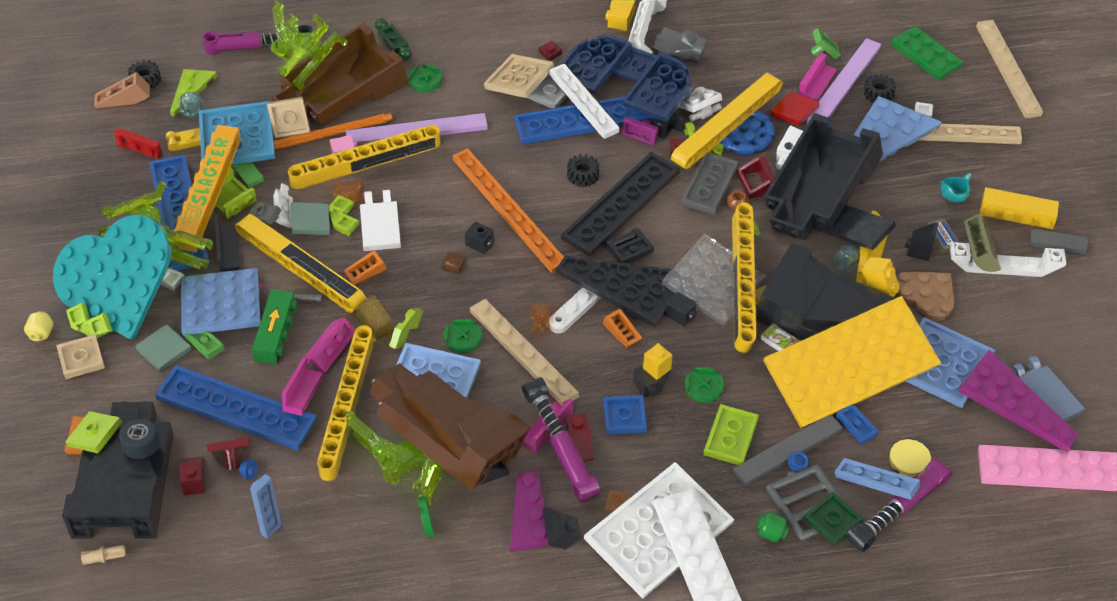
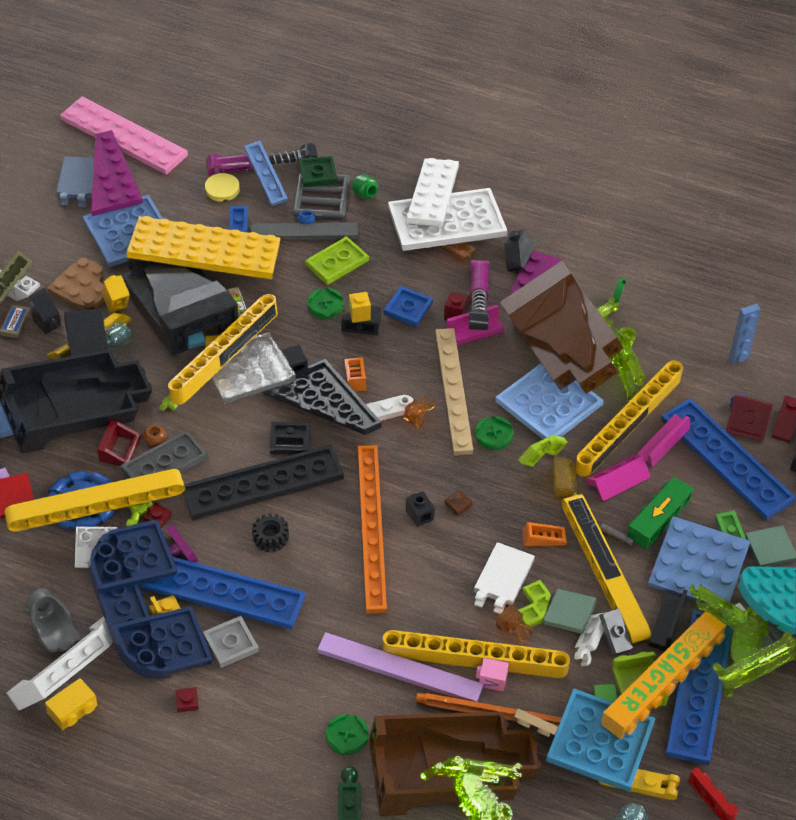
camera: 150 degrees left, 0 degrees up
(518, 75) = (251, 669): tan plate -> none
(584, 101) = (213, 596): white plate -> none
(617, 88) = (163, 605): none -> yellow bracket
(786, 146) = (65, 447): white torso -> none

